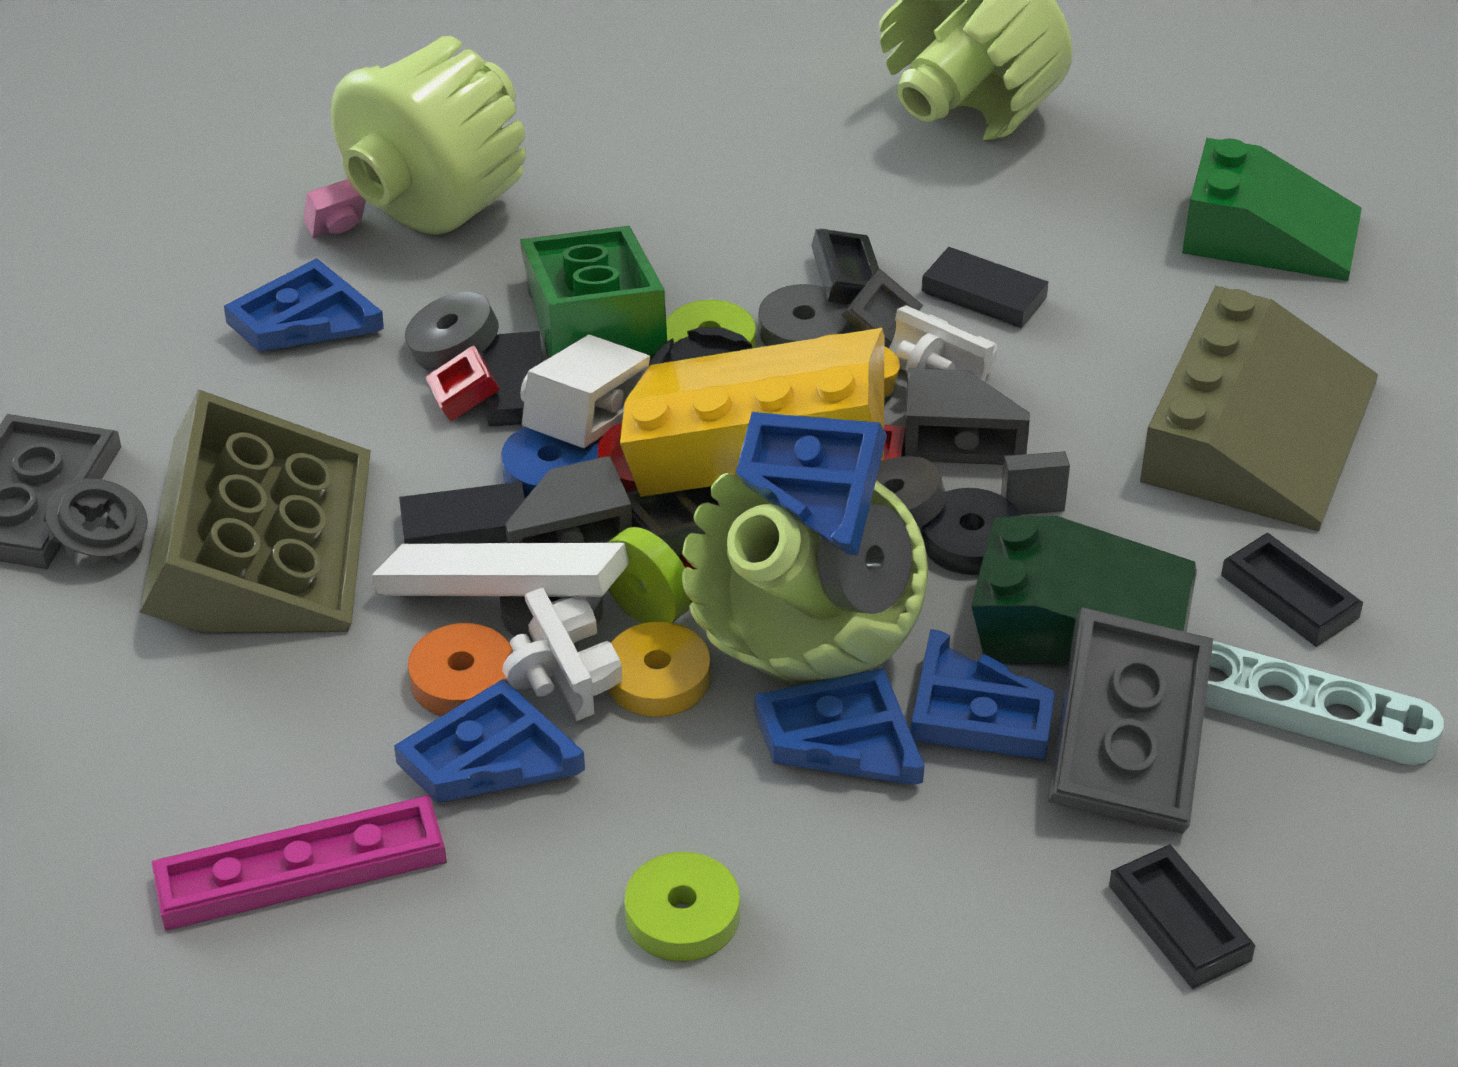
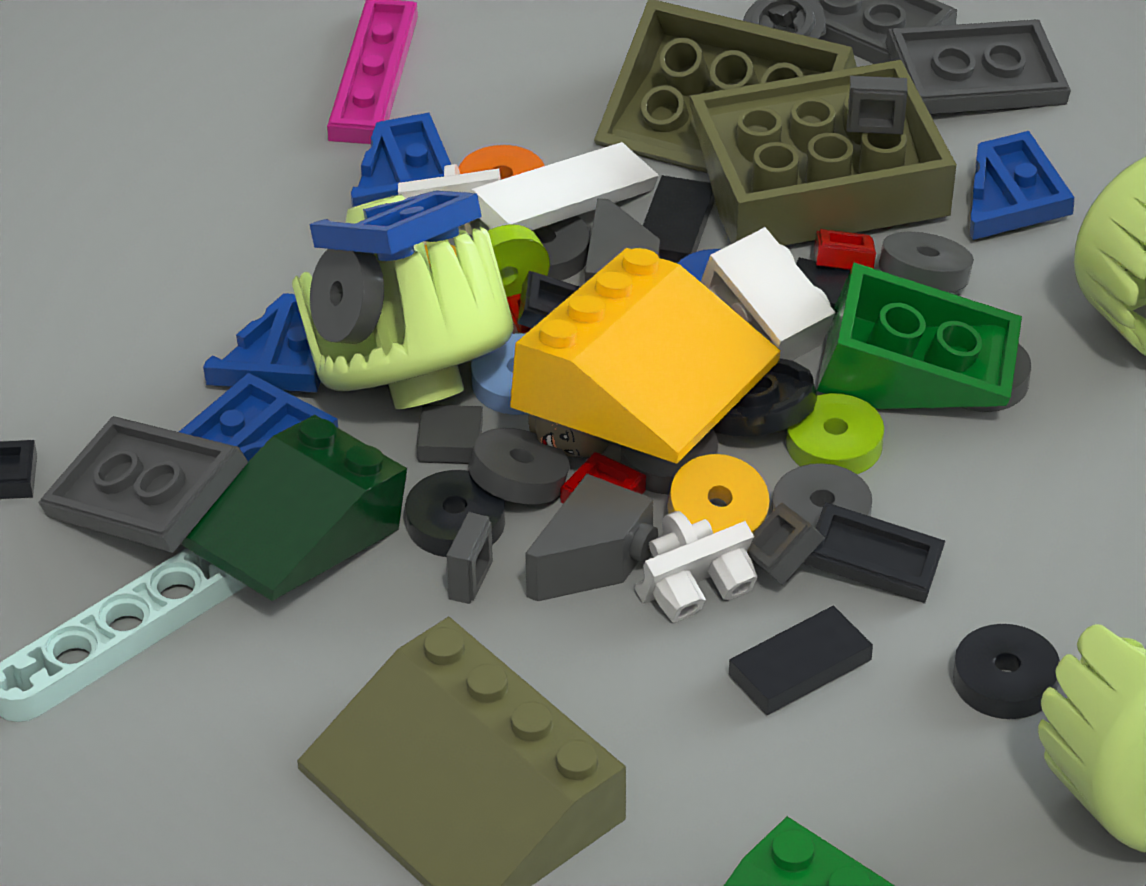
camera: 115 degrees right, 0 degrees up
(111, 374) = (980, 65): none -> dark grey tile
(319, 326) = (877, 104): none -> dark grey tile
(356, 401) = (789, 165): none -> olive slope
(682, 932) = (191, 226): lime piece -> none
(914, 189) = (1005, 647): none -> black piece
(1292, 589) = (234, 698): black tile -> none

